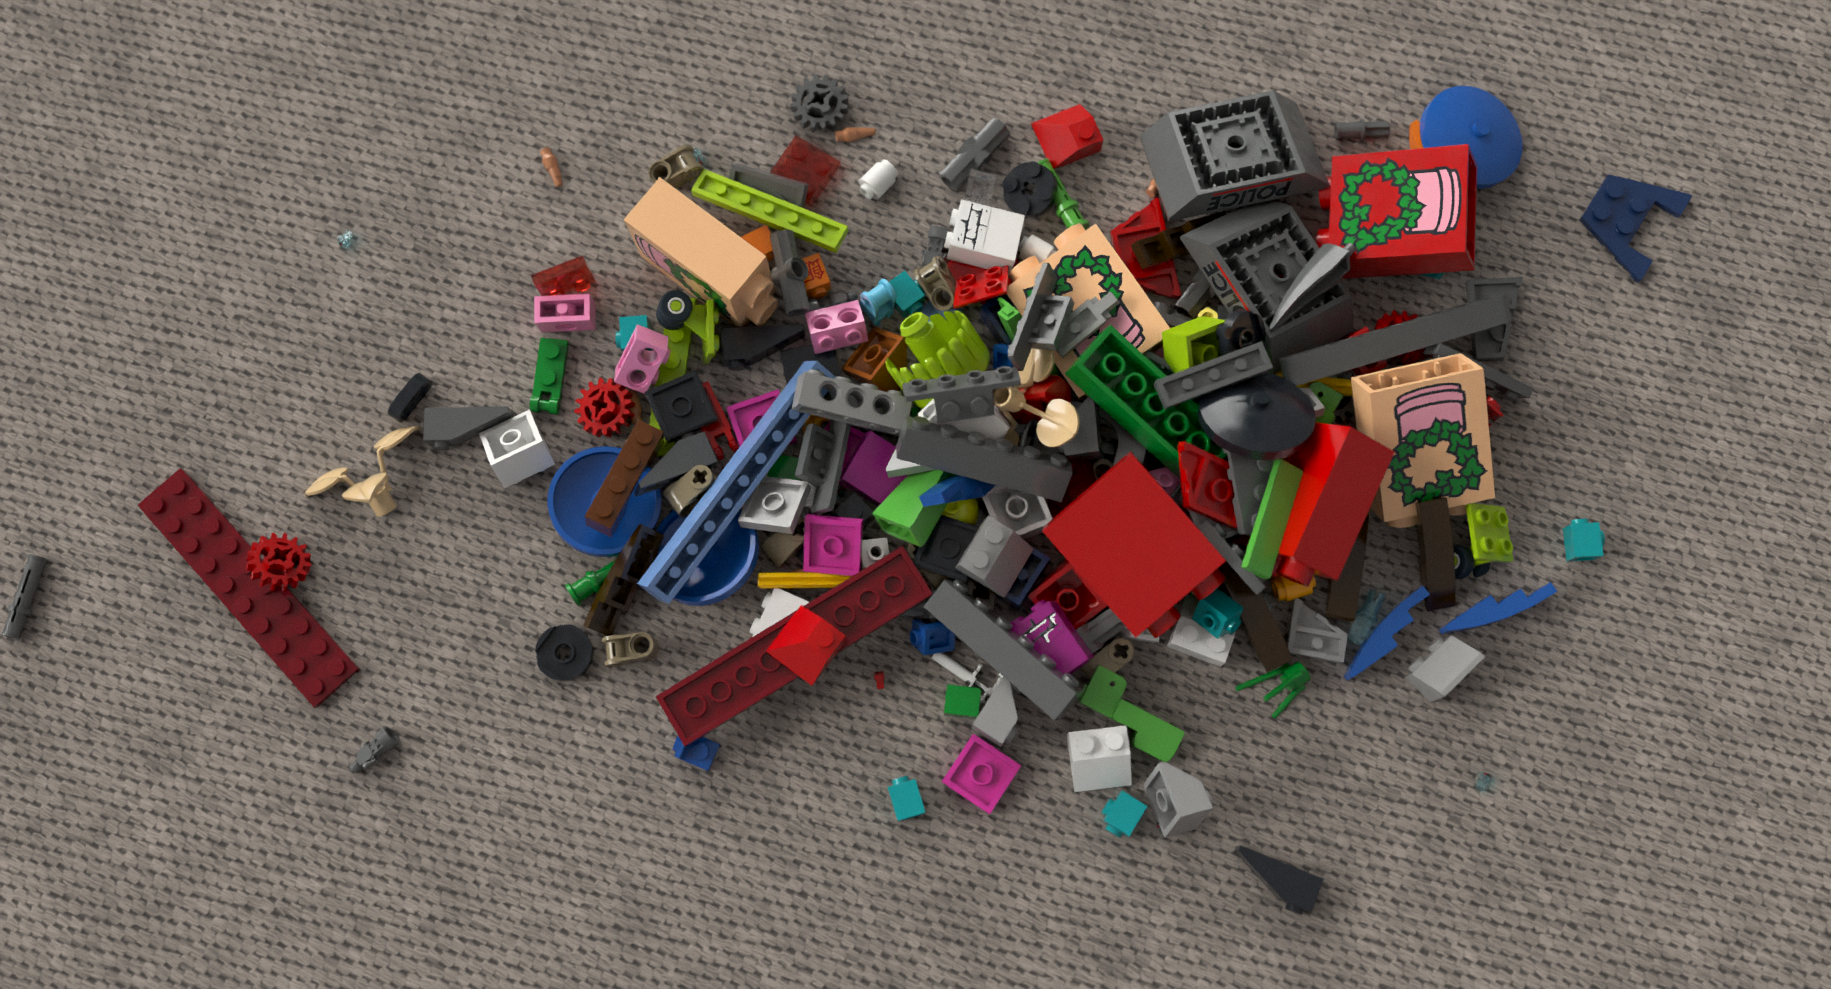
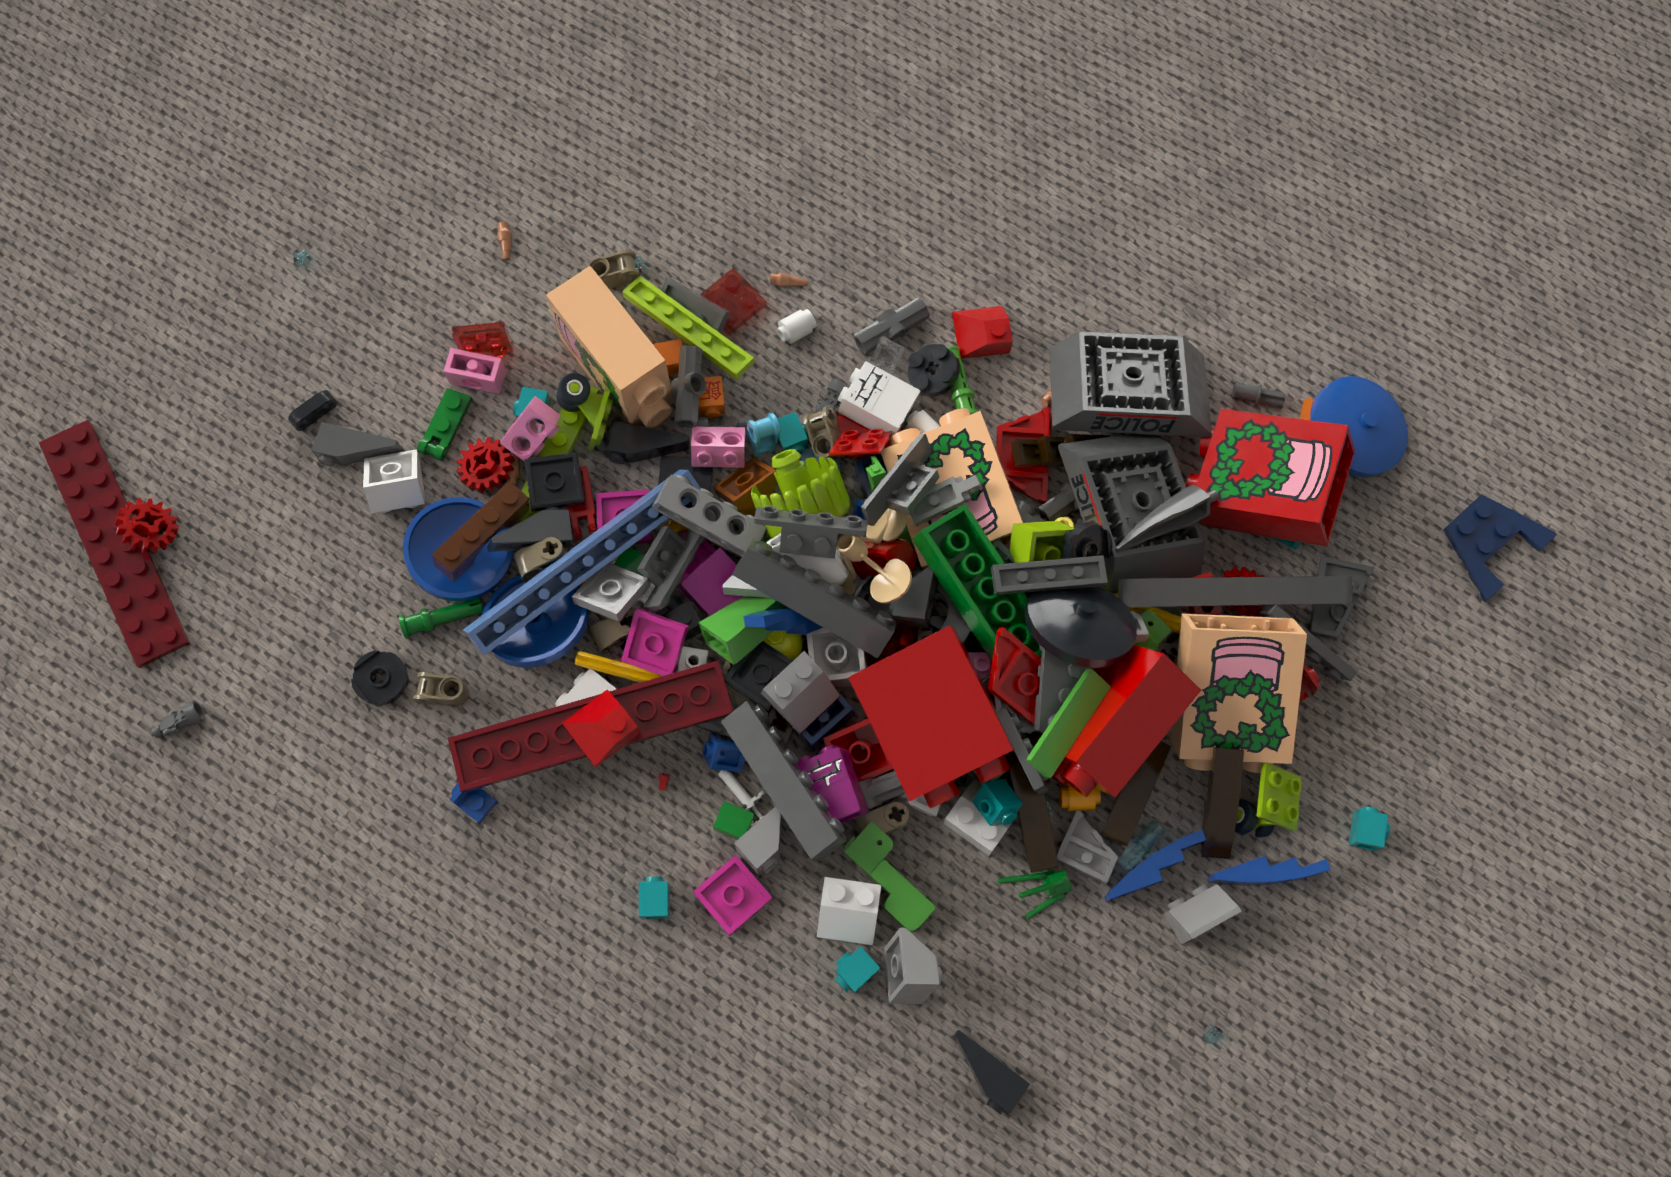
camera: 10 degrees right, 5 degrees down
(370, 490) = (254, 490): tan plant -> none
(622, 580) = (448, 628): dark brown slope -> none
(824, 92) = (761, 256): dark grey gear -> none

